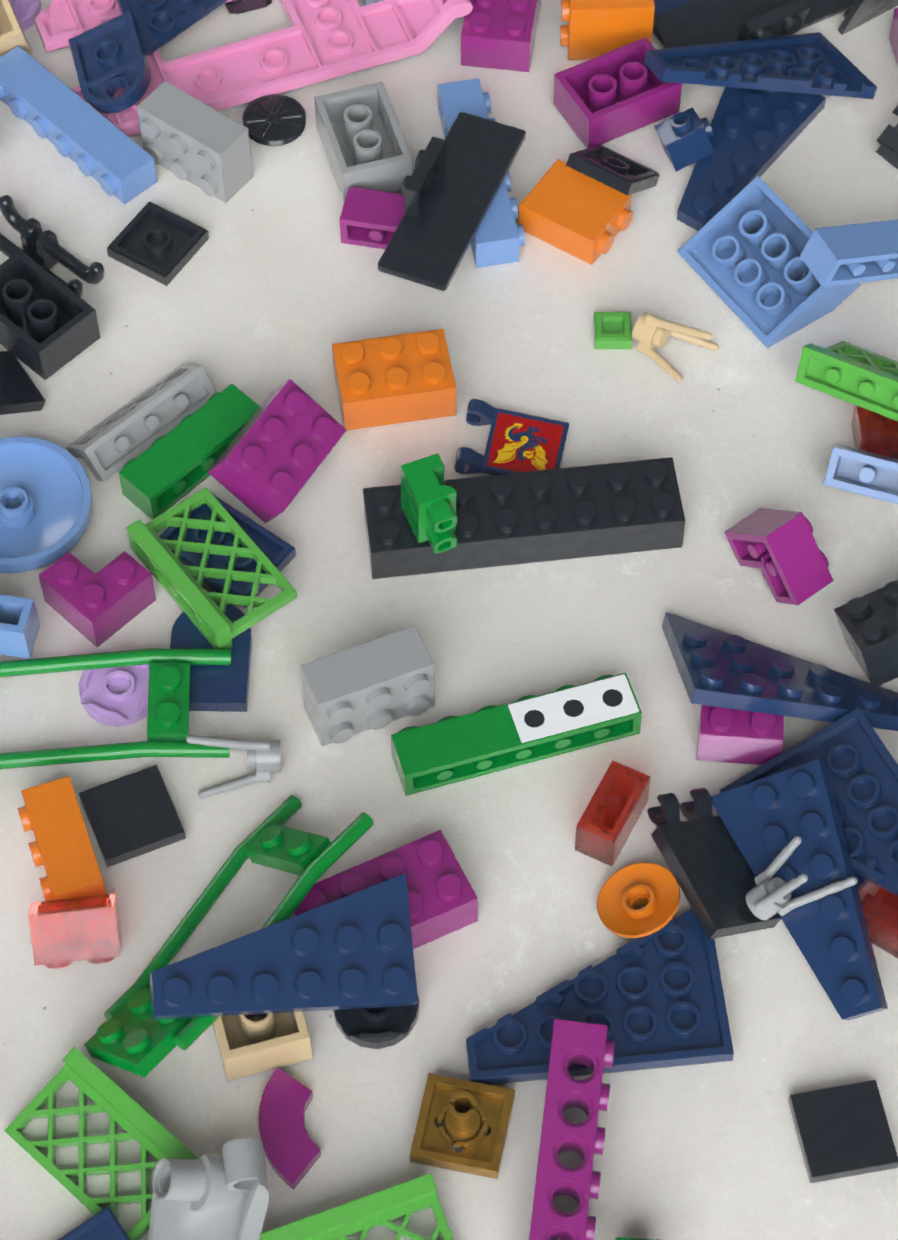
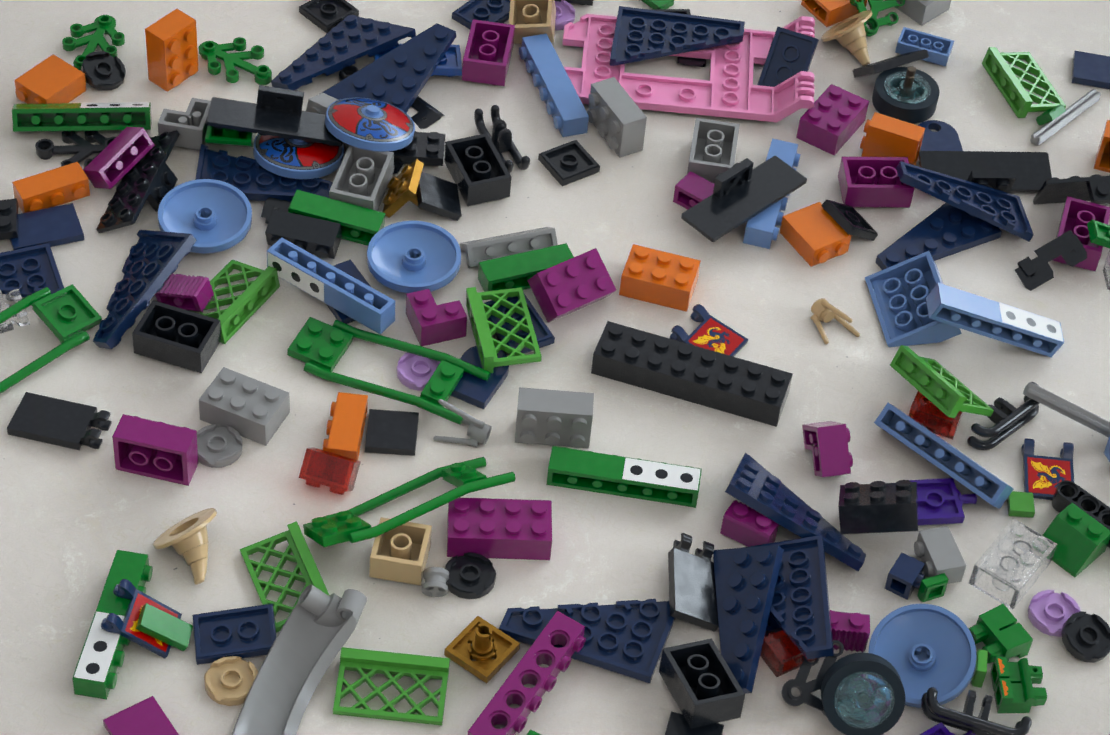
camera: 20 degrees right, 10 degrees down
(109, 60) = (592, 59): dark blue tile -> none
(274, 120) = (671, 125): black wheel -> none
(283, 1128) = (386, 611): magenta tile -> none
(323, 959) = (449, 530): dark blue wing -> none
(335, 1045) = (435, 582): none -> light grey wheel
(429, 503) = (636, 335): green hips -> none
(612, 330) = (801, 302): bright green tile -> none
(612, 813) = (653, 534): clear red brick -> none
(632, 888) = (643, 582): orange dish -> none
(685, 138) = (902, 219): dark blue brick -> none
(774, 894) = (718, 607): light grey plant -> none
(816, 1032) = (701, 683): none -> black brick

